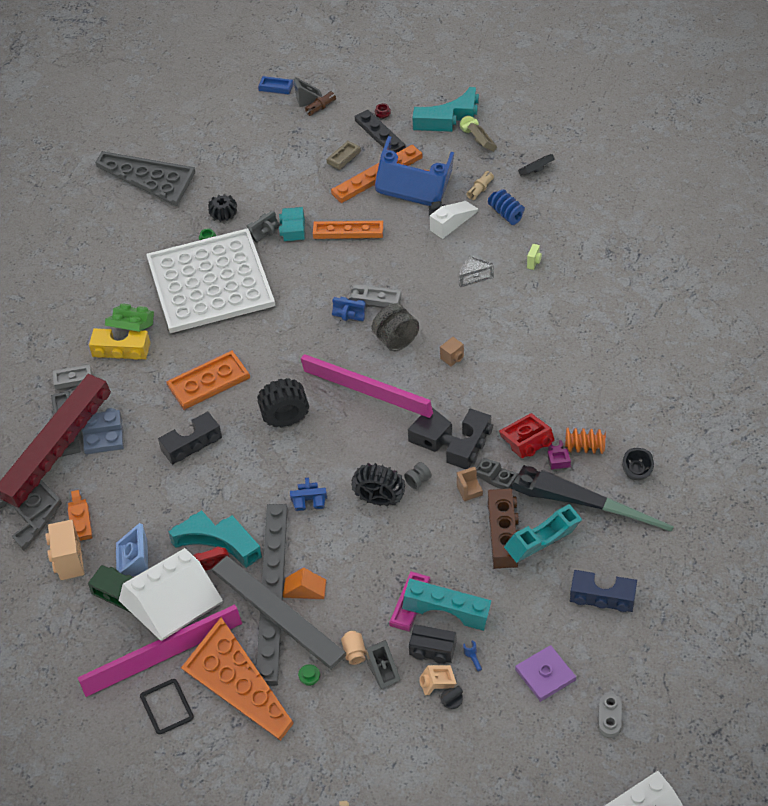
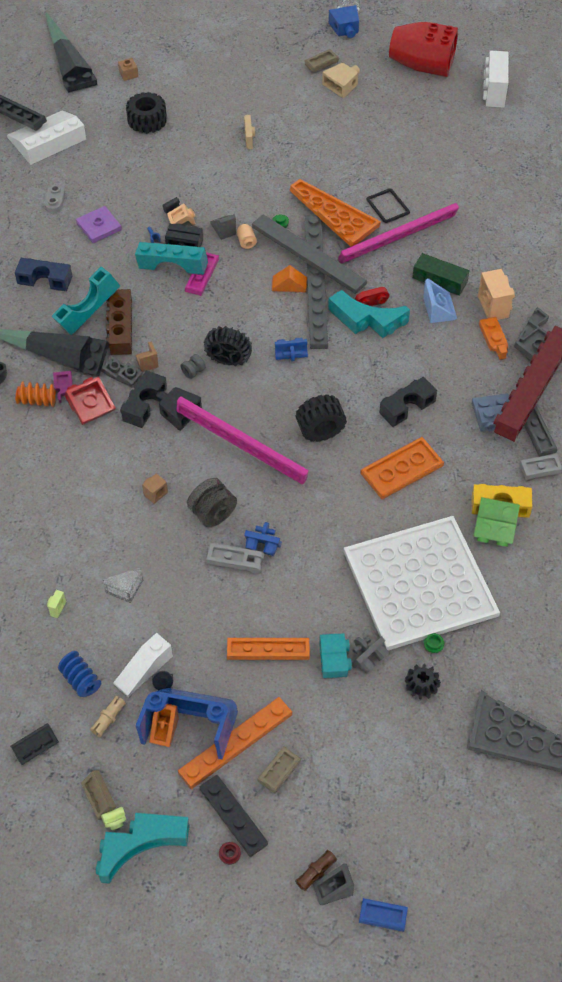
camera: 175 degrees right, 5 degrees up
(170, 594) = (398, 257): white slope -> none

